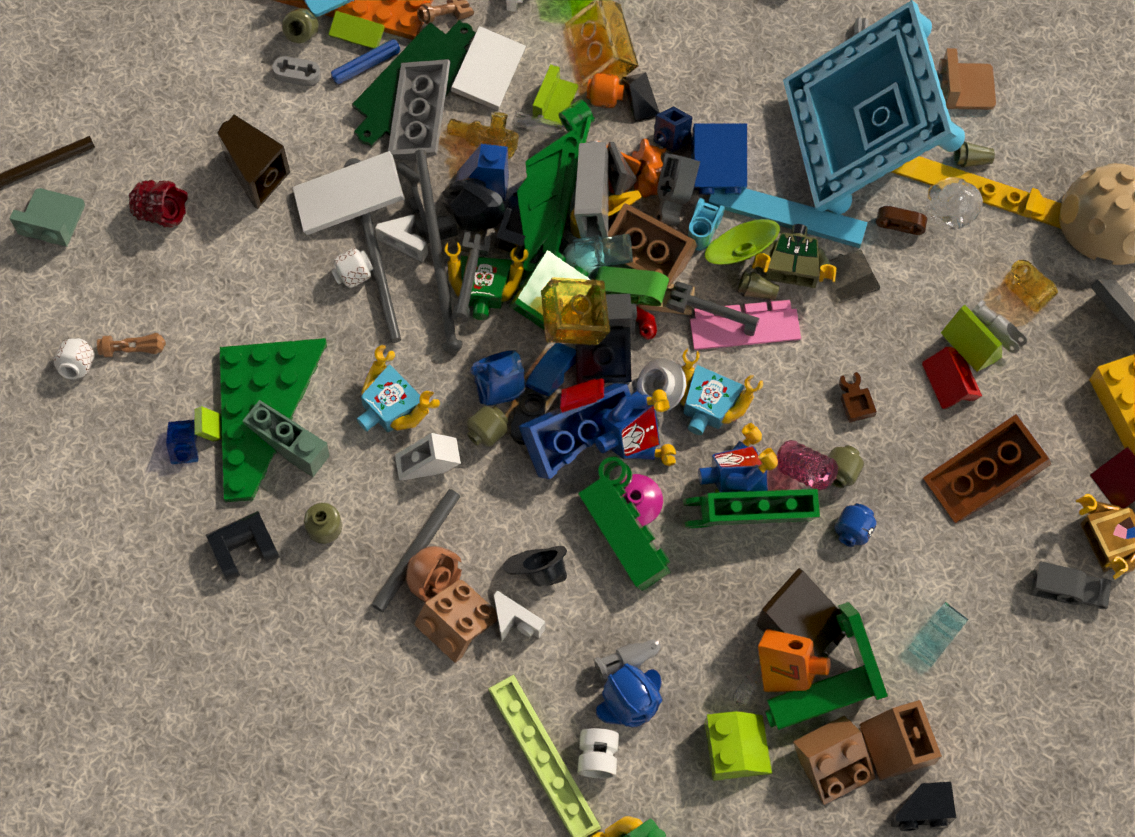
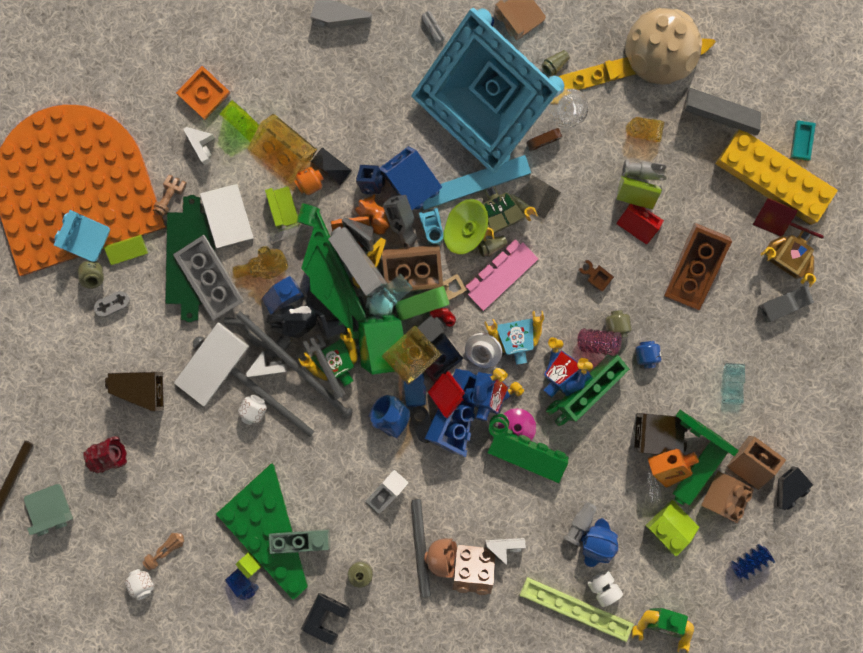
camera: 40 degrees left, 20 degrees up
(365, 61) = (148, 266): blue axle -> none
(391, 398) = (339, 473): torso -> none
(487, 426) = (405, 449): olive head -> none
(541, 566) = (494, 508): black piece -> none
(684, 298) = (505, 273): dark grey hinge -> none

